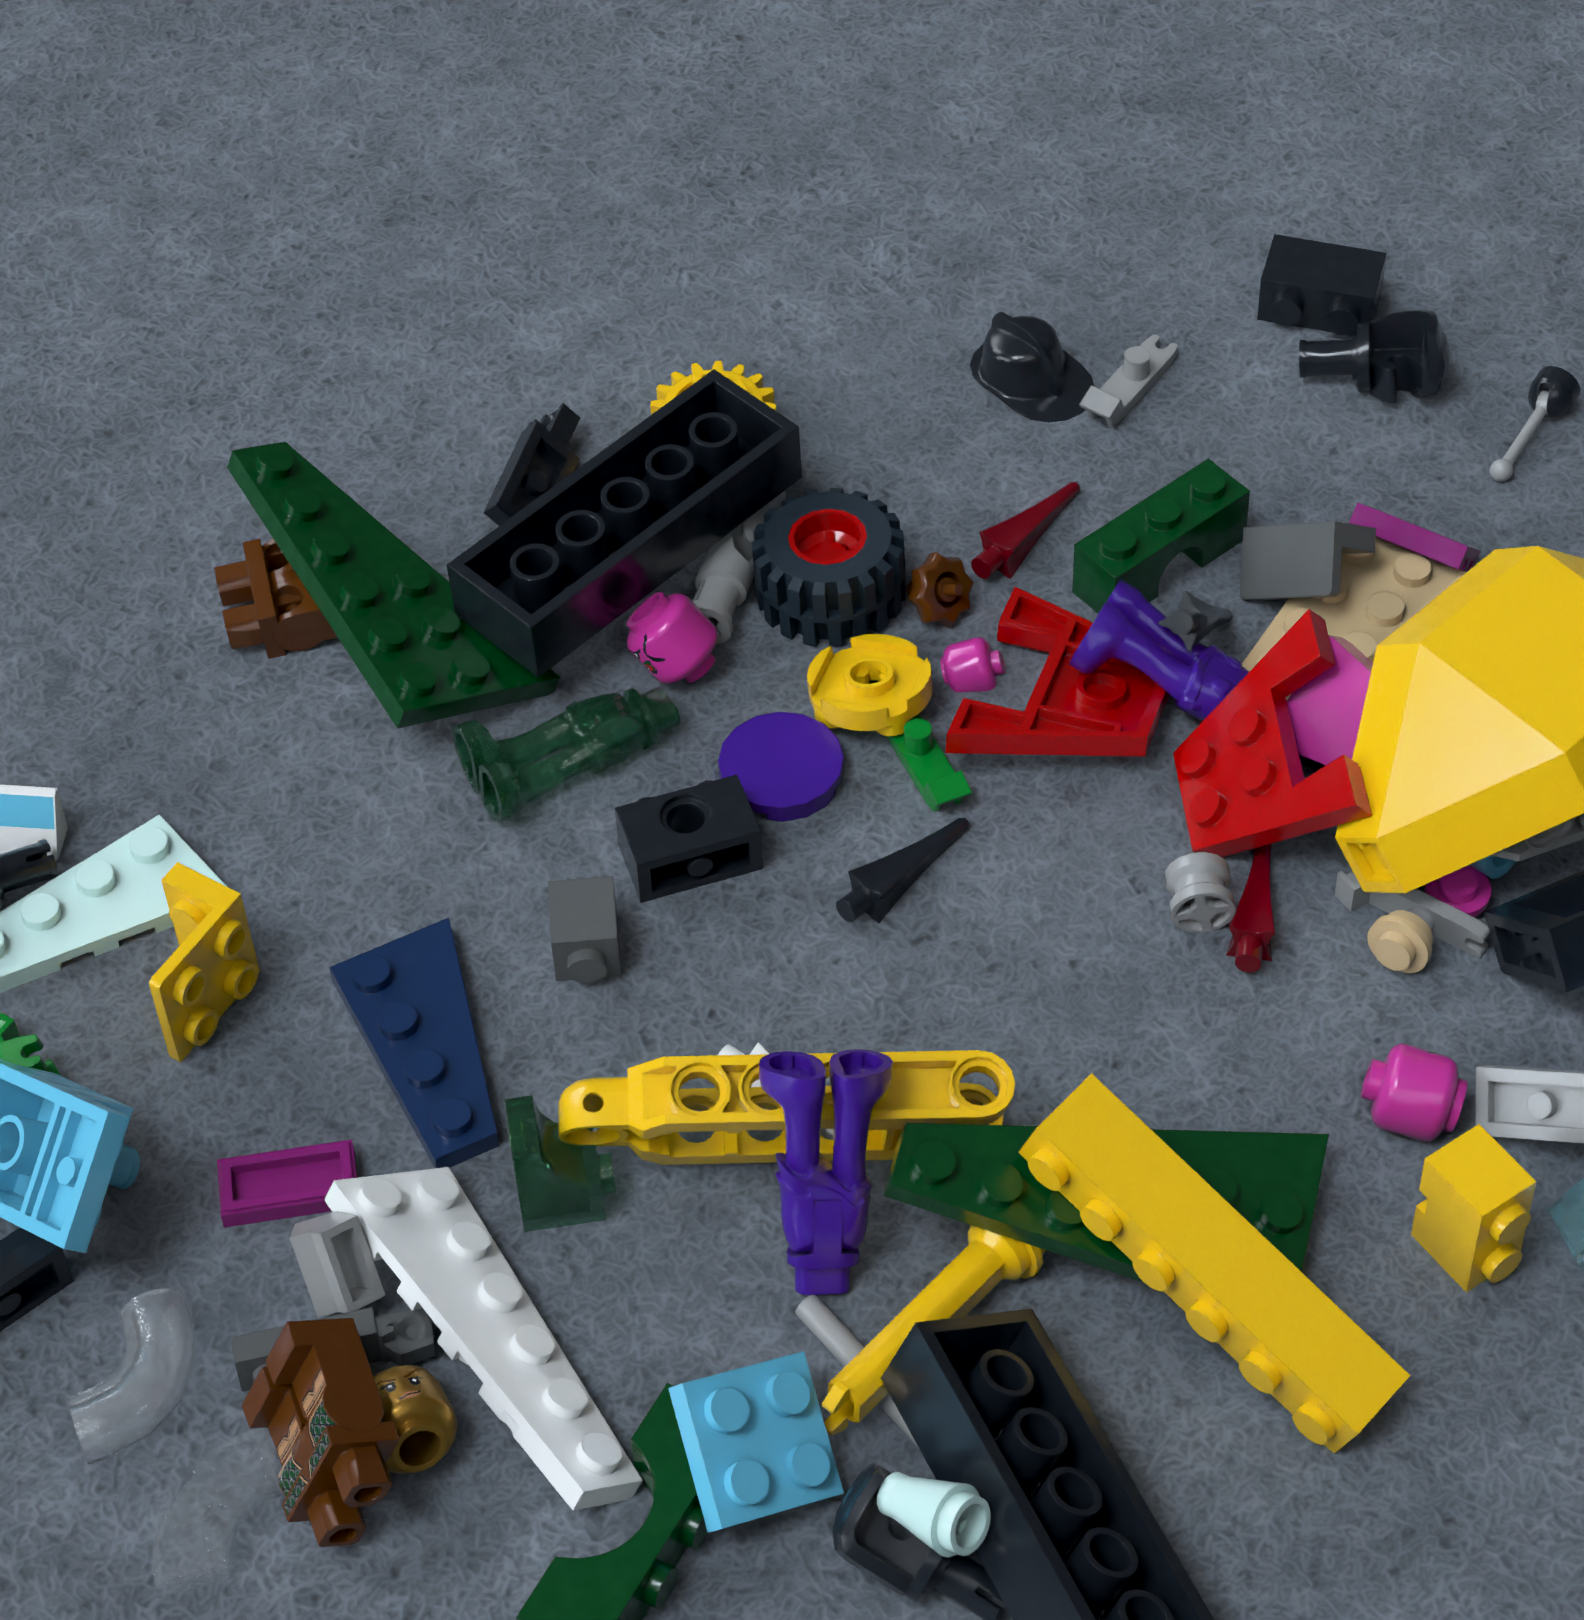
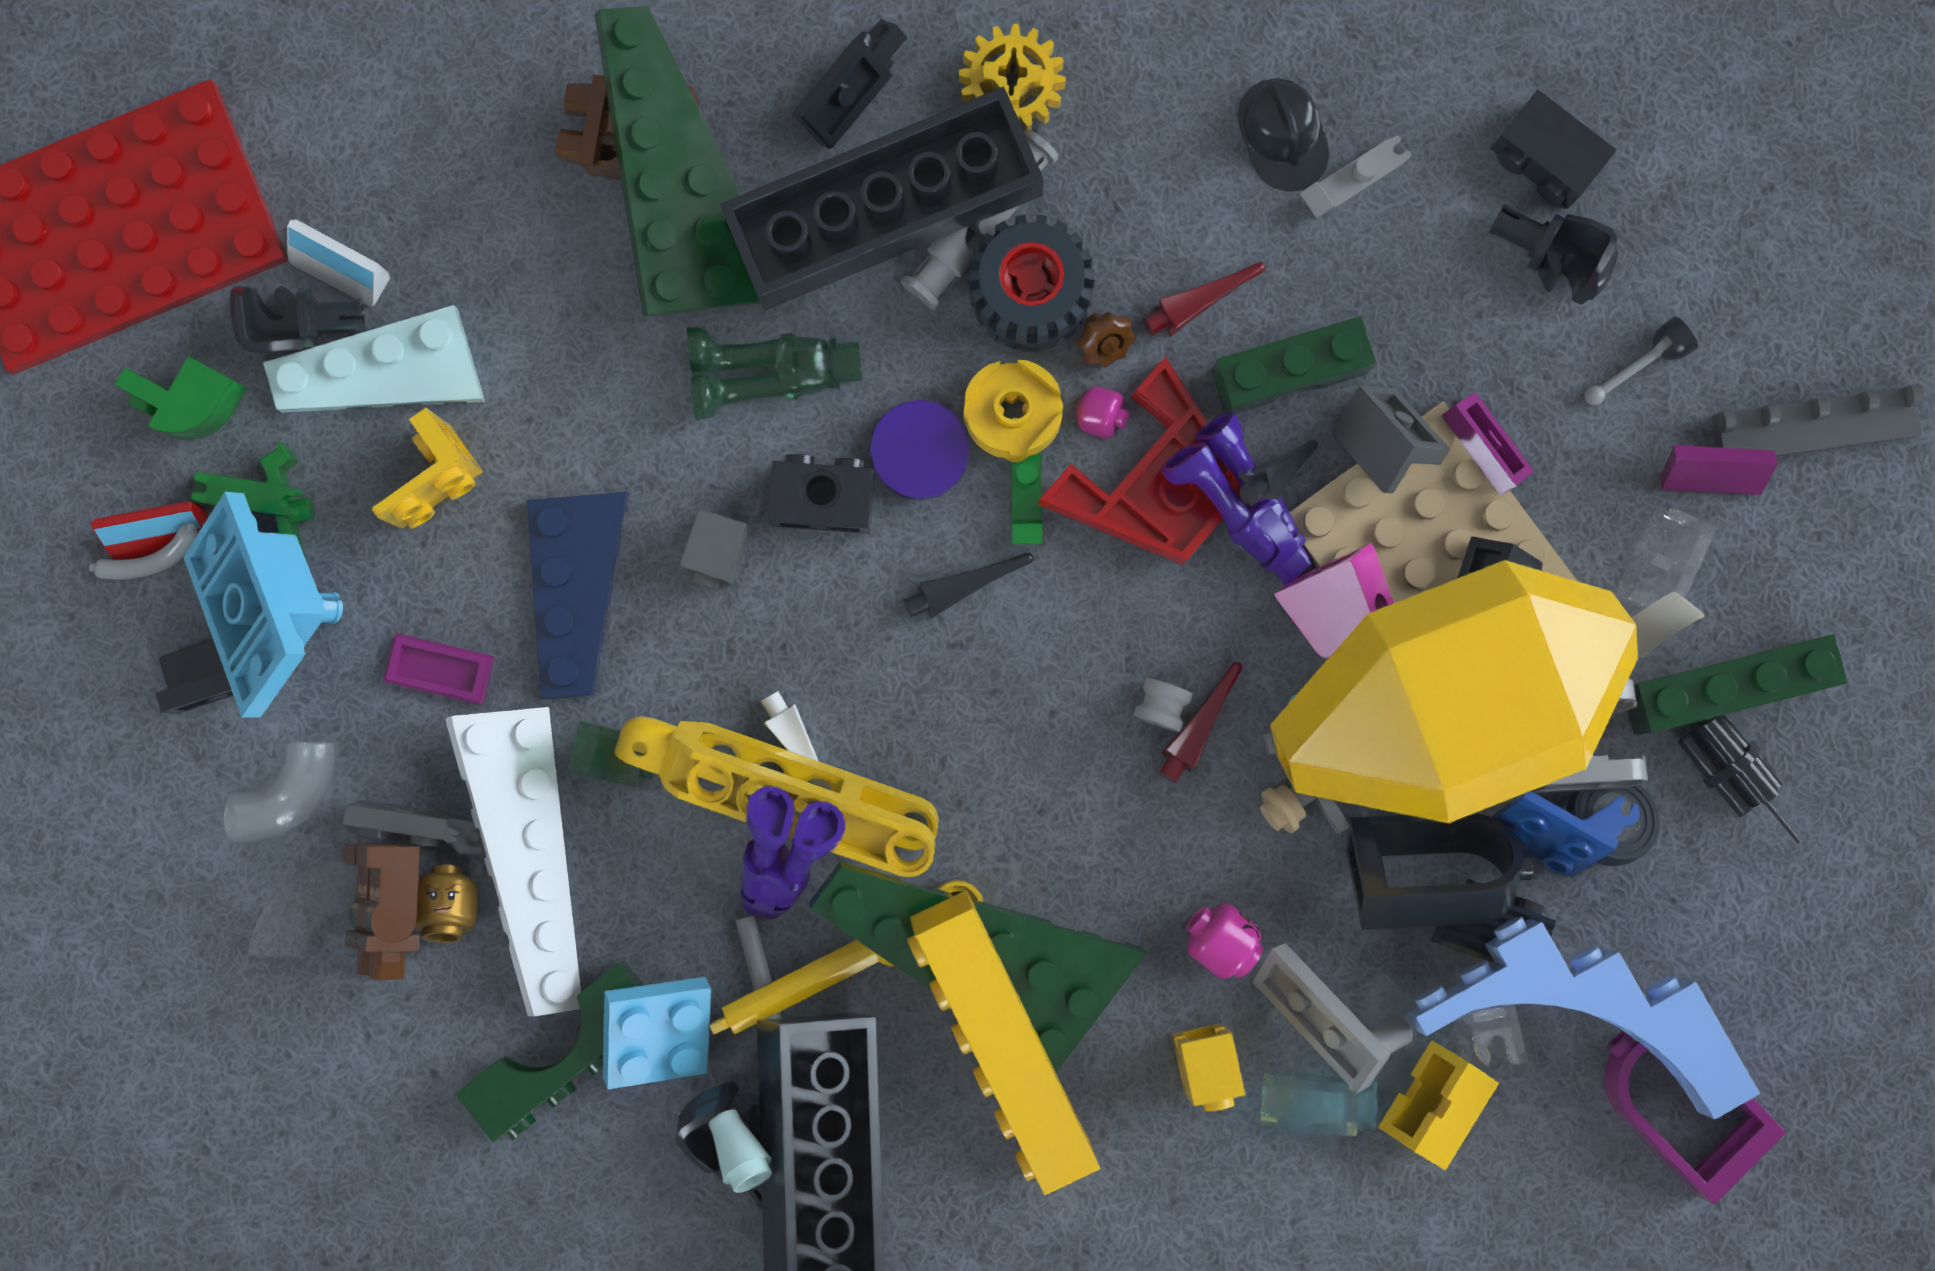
camera: 20 degrees right, 35 degrees up
(336, 1263) = (435, 767): light grey piece -> none
(672, 638) = (882, 306): dark pink head -> none
(1243, 763) = (1243, 621): red wing -> none

